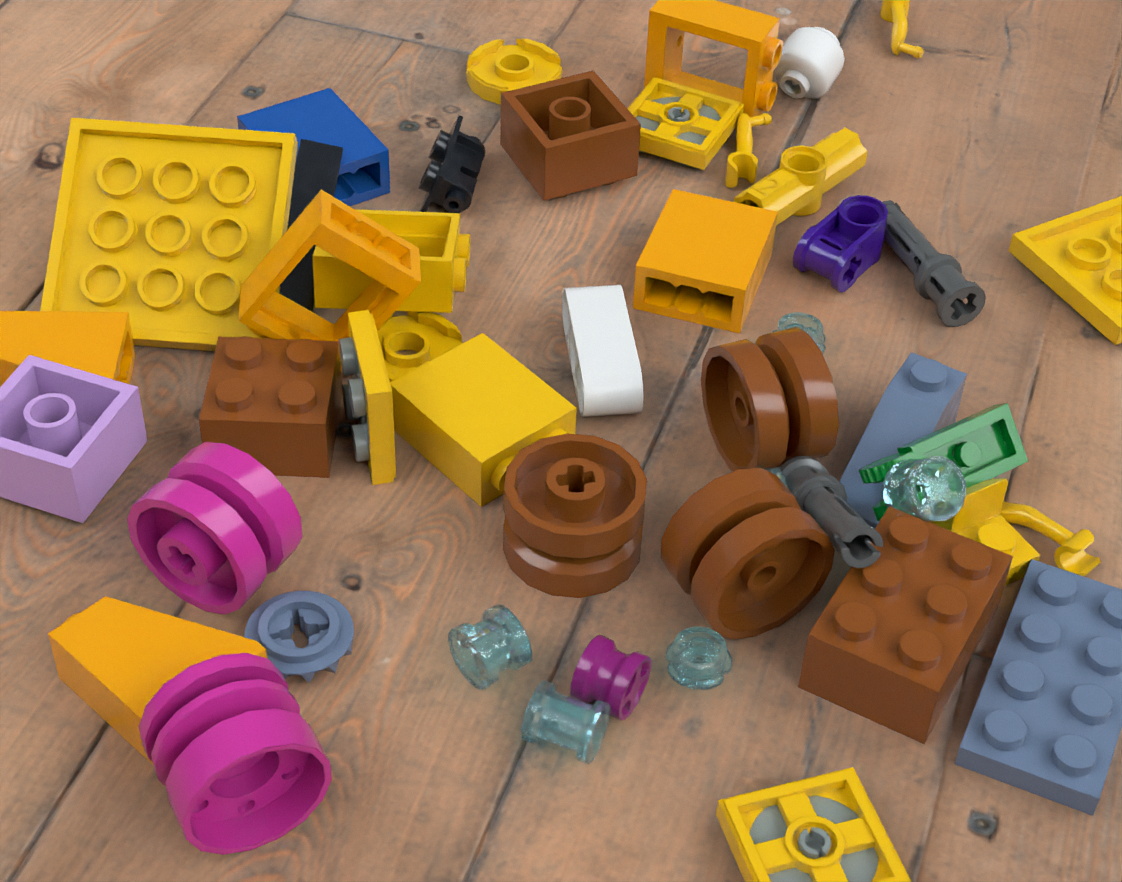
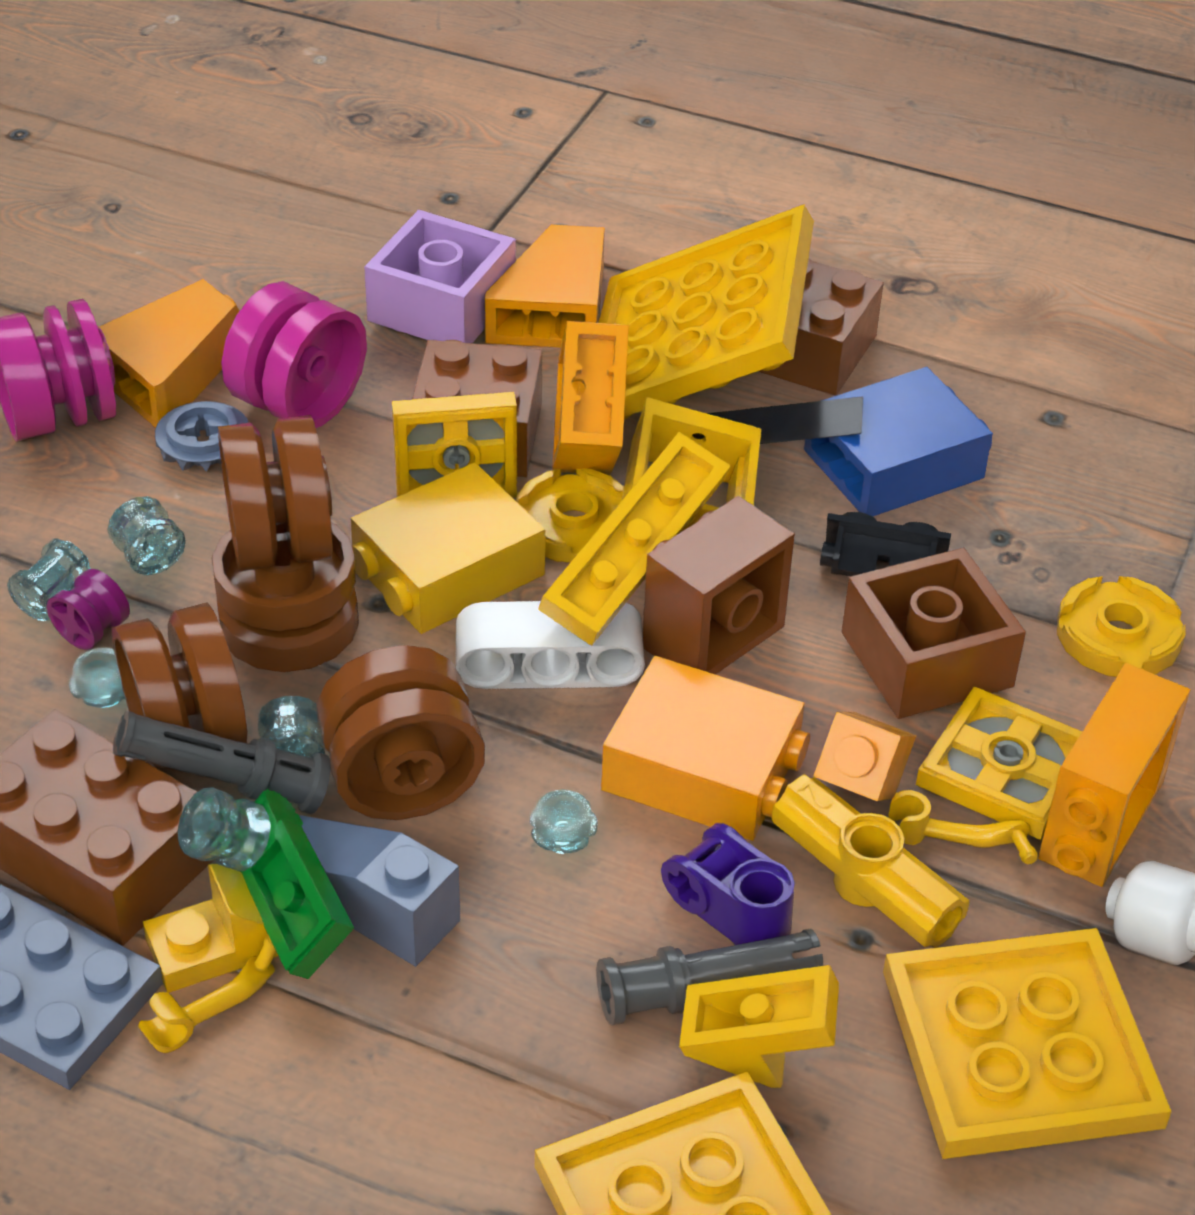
camera: 95 degrees right, 0 degrees up
(509, 248) = (615, 557): none -> yellow plate
(549, 228) = (717, 587): none -> dark orange brick
(567, 429) = (285, 492): none -> dark orange wheel
(712, 165) = (864, 756): none -> light orange brick
(930, 130) = (1023, 1043): none -> yellow plate
(978, 214) = (758, 1019): none -> yellow slope

